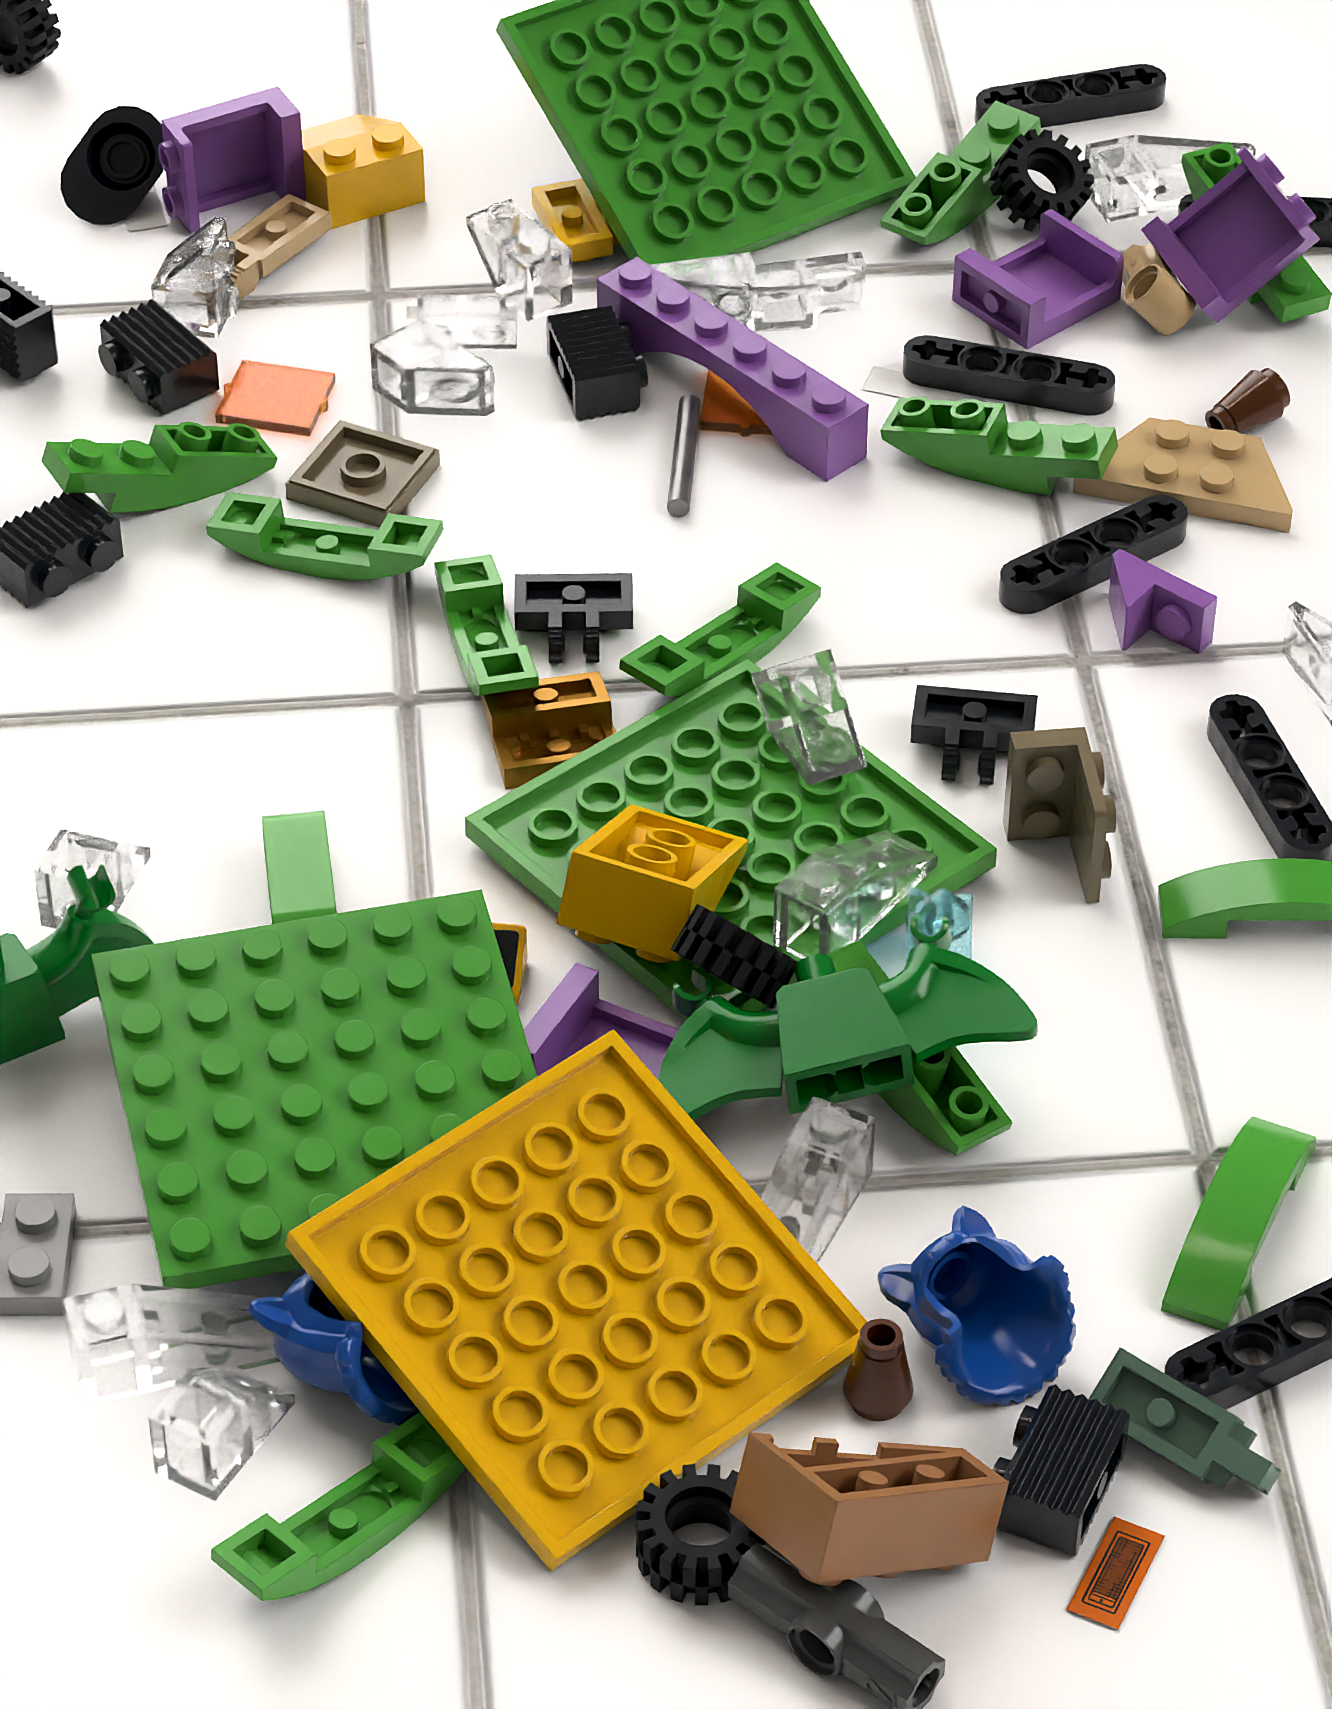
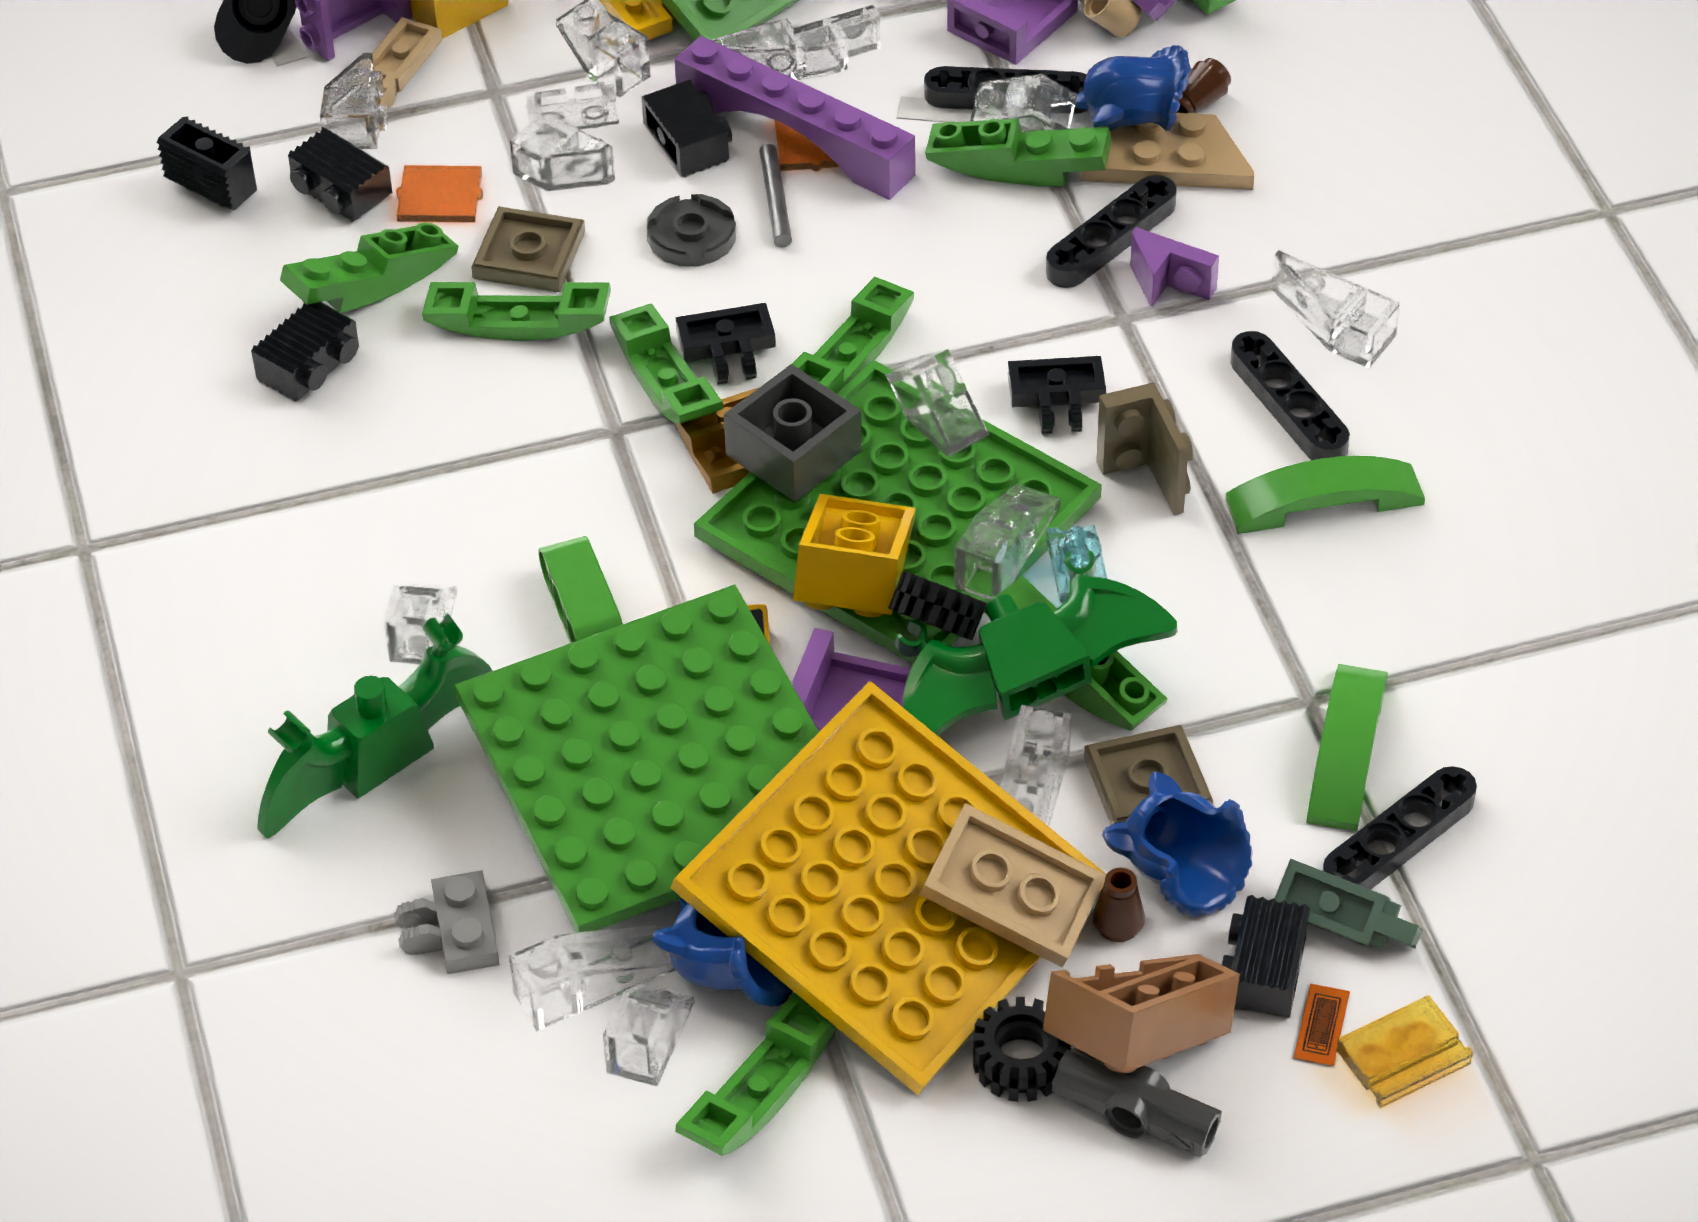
camera: 10 degrees left, 5 degrees up
(569, 481) = (691, 230): none -> dark grey tile
(613, 723) = (793, 432): none -> dark grey brick
(738, 1319) = (1013, 885): none -> tan plate
(930, 1194) = (1125, 764): none -> dark tan tile
(1027, 384) = (1032, 99): none -> clear slope
(1159, 389) = (1136, 89): none -> blue hair
(1216, 1625) = (1404, 1051): none -> clear yellow plate

